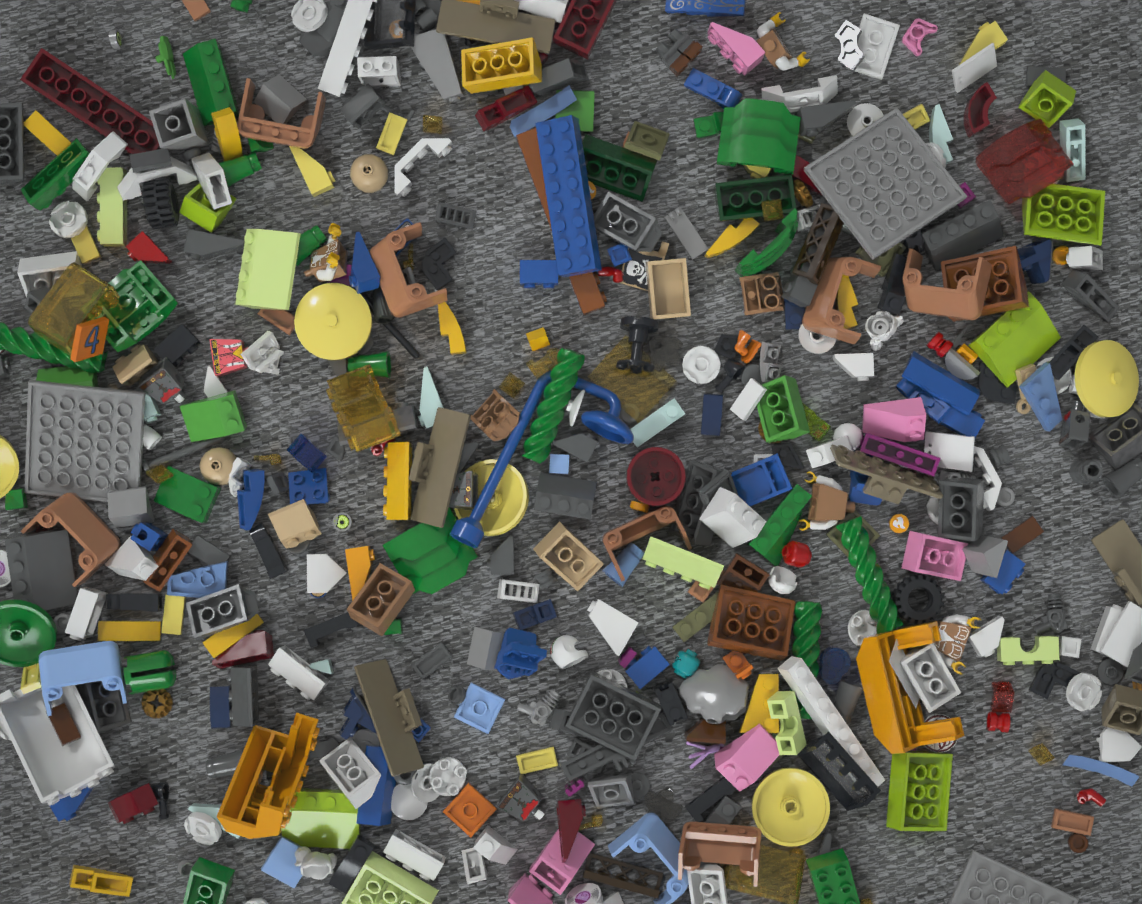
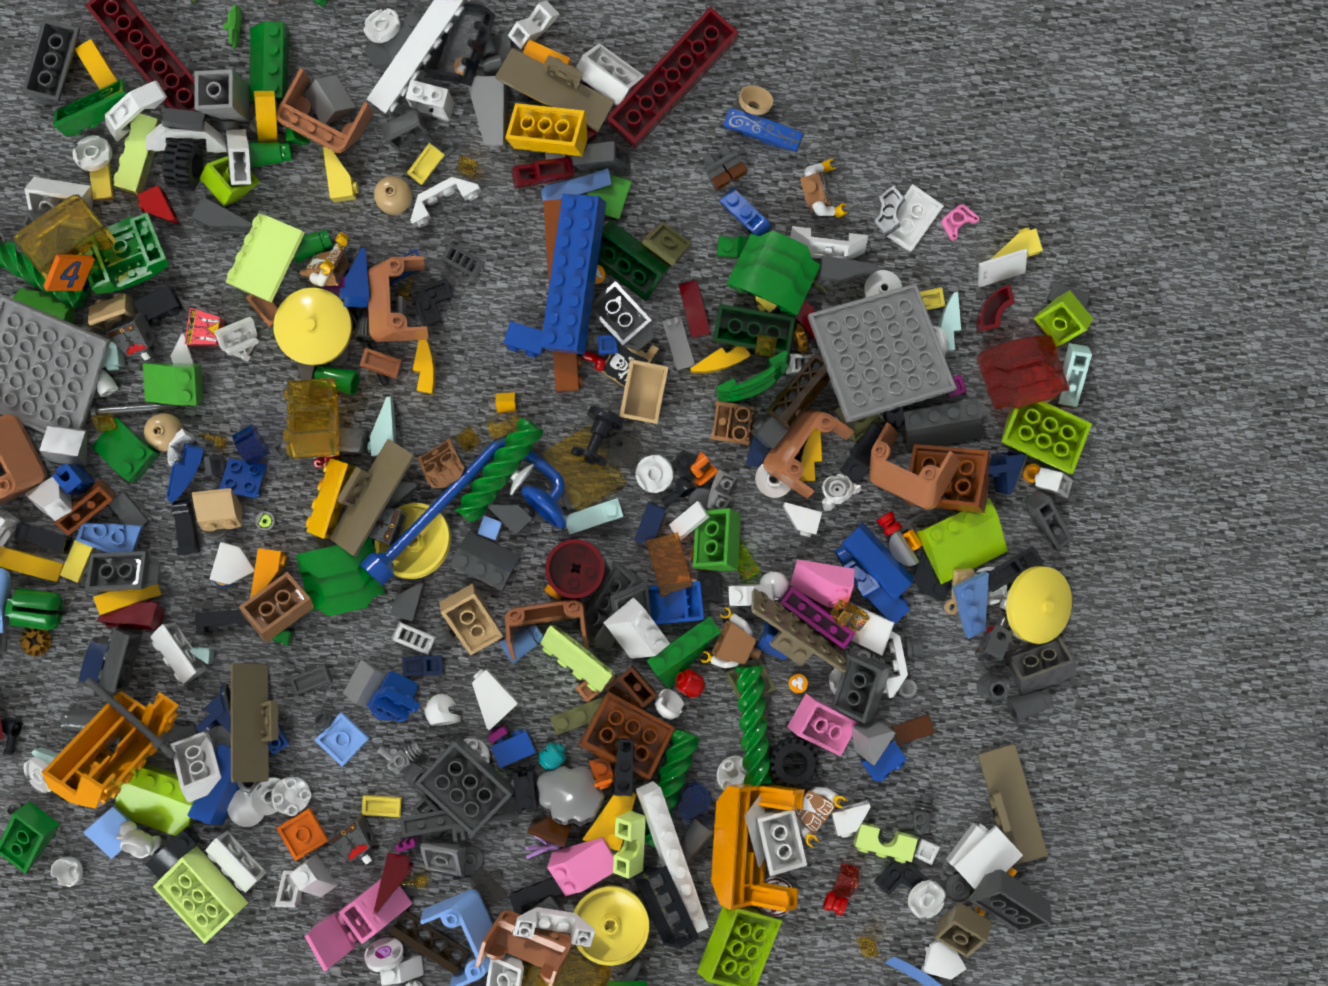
camera: 10 degrees right, 0 degrees up
(309, 761) = (157, 741): none -> dark grey bar
(406, 337) = (380, 363): none -> nougat tile
(691, 196) = (694, 309): none -> dark red slope
(737, 47) = (782, 181): bright pink slope -> none
(740, 816) = (555, 920): none -> white slope
(742, 446) = (666, 563): none -> clear orange door
(760, 651) = (624, 768): none -> black leg
(932, 443) = (851, 615): none -> clear yellow leg

